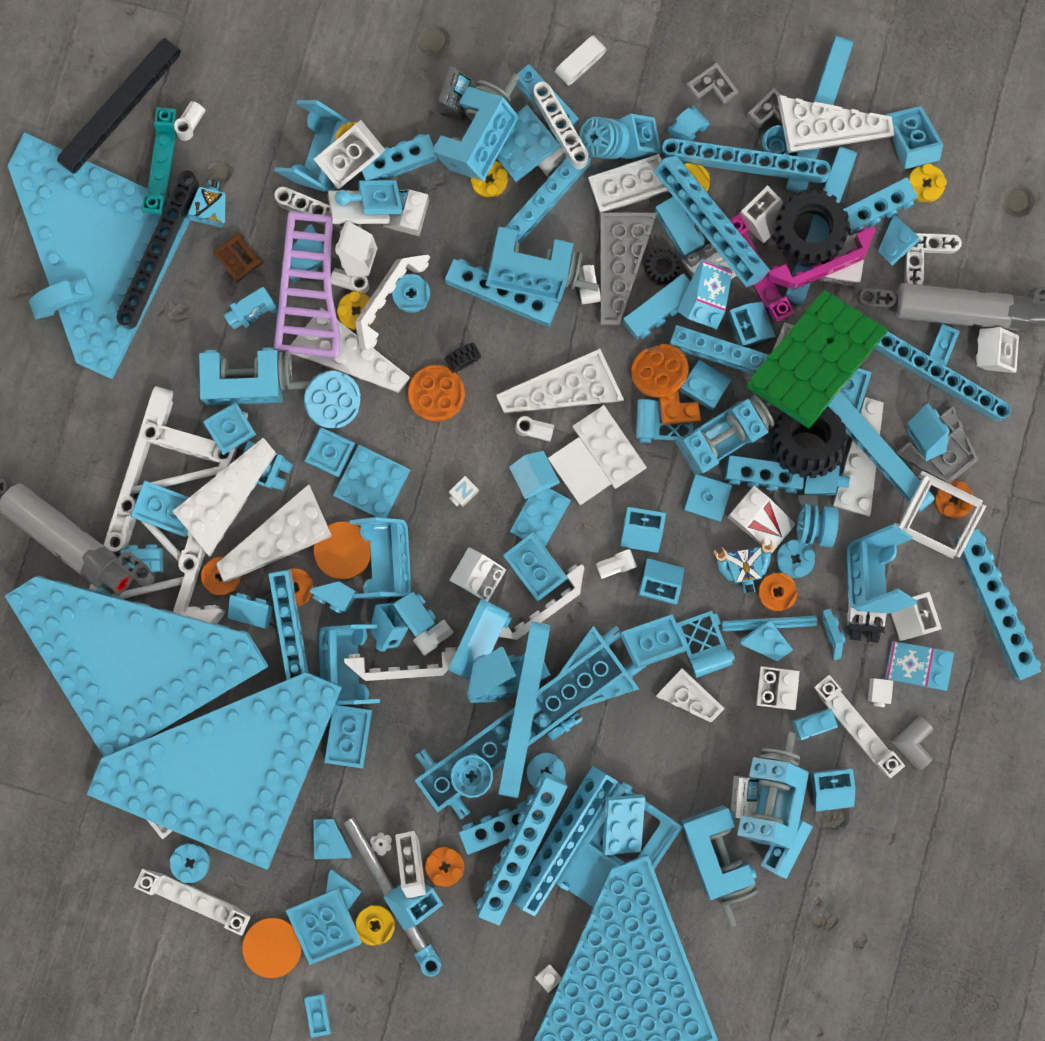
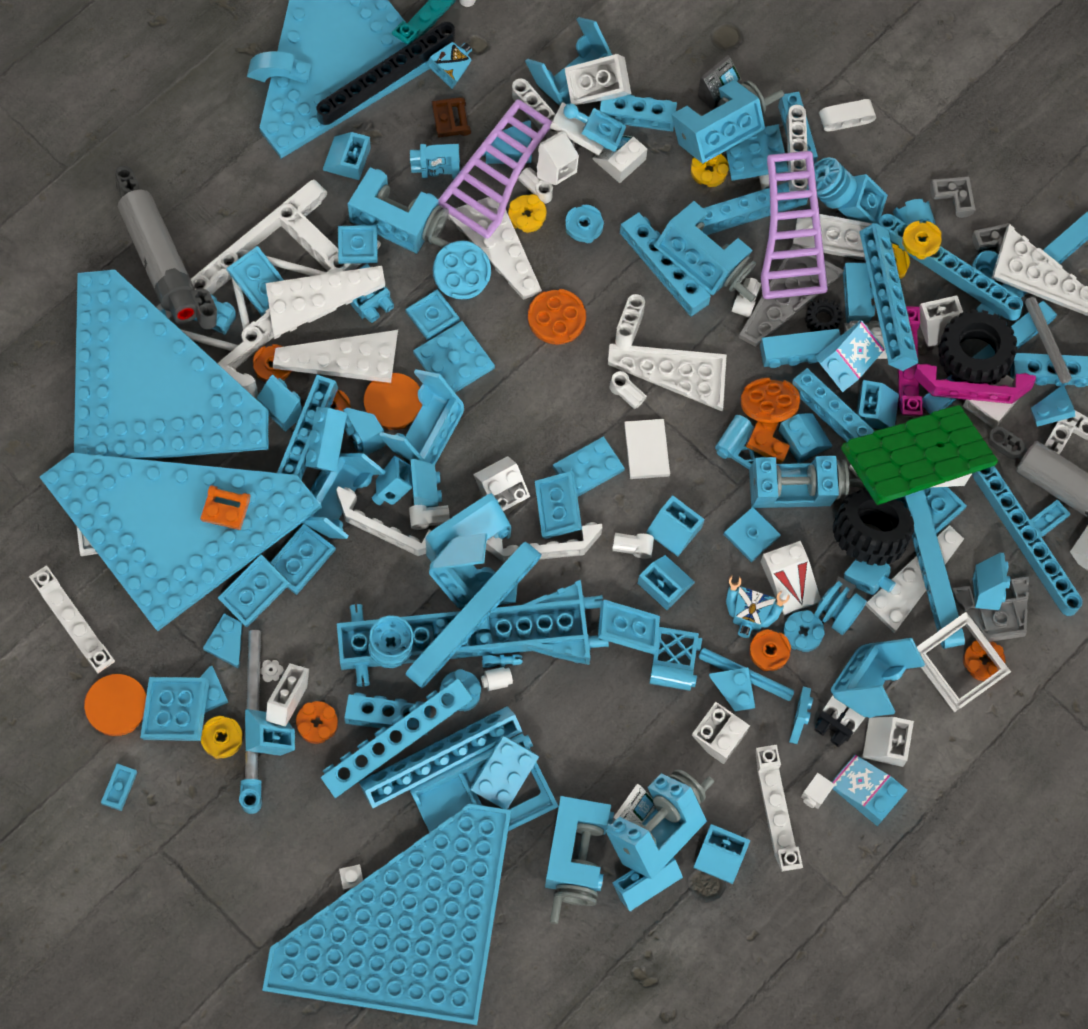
camera: 30 degrees right, 15 degrees down
(170, 346) = (348, 155): none -> medium azure slope
(188, 874) = (98, 598): medium azure plate -> none
(263, 743) = (225, 514): none -> orange plate
(310, 626) = (326, 439): none -> medium azure brick
(327, 787) = (254, 590): none -> medium azure plate
(365, 334) = (600, 198): white slope -> none
(462, 357) = (598, 296): black tyre -> none
(463, 492) = (531, 408): white brick -> none
(500, 357) = (630, 321): none -> white beam
(534, 474) = (603, 427): medium azure slope -> none
(570, 745) = (496, 678): none -> white brick
(584, 218) = (774, 235): none -> lavender bar
(609, 447) = (686, 443): white plate -> none
(691, 696) = (634, 697): white wing -> none
(714, 160) = (922, 249): none -> yellow plate
(735, 464) = (812, 529): medium azure brick -> none
(814, 724) = (737, 785): medium azure brick -> none
(865, 184) = (1048, 340): none -> light grey axle
(909, 743) = (821, 854): light grey brick -> none
(995, 616) = (964, 845): medium azure brick -> none

